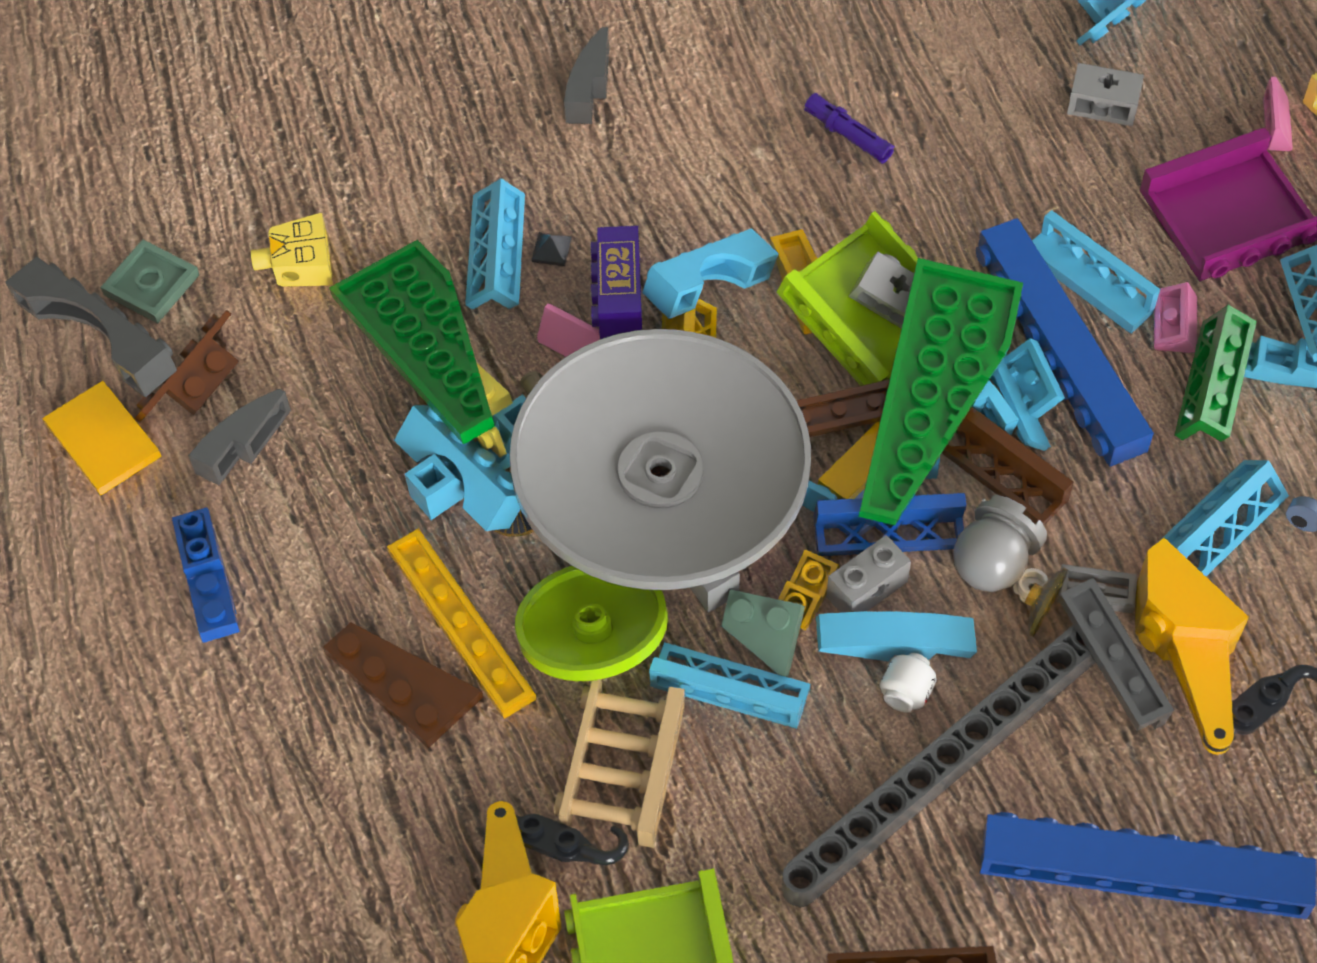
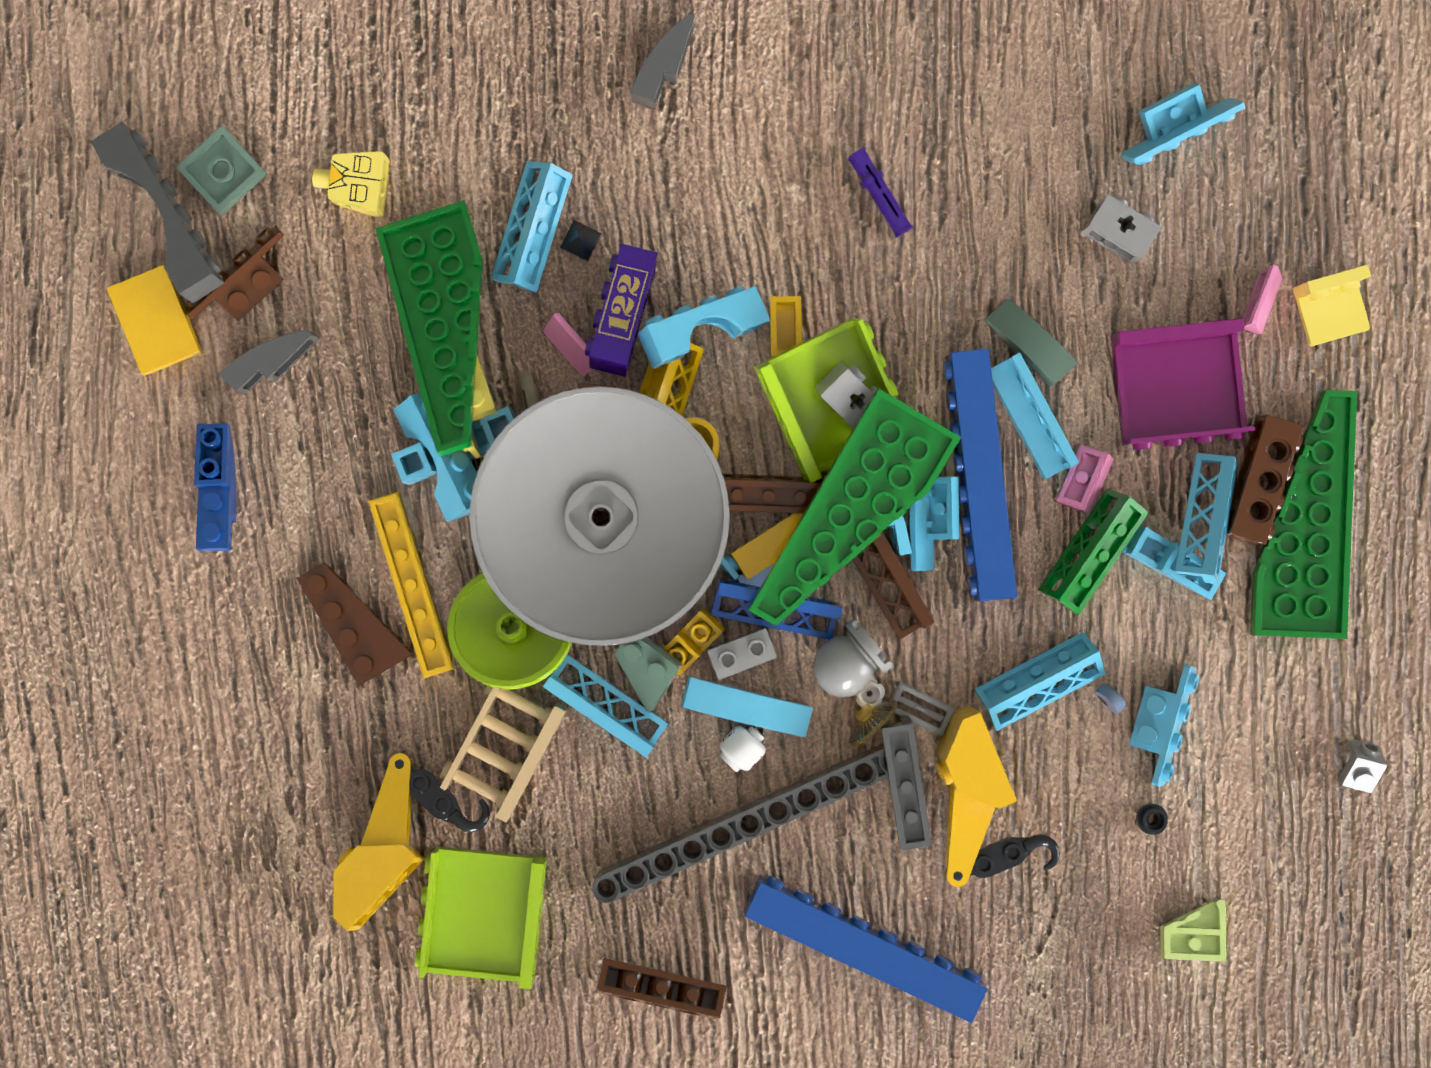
camera: 15 degrees right, 30 degrees up
(1081, 209) = (1030, 339): none -> sand green slope

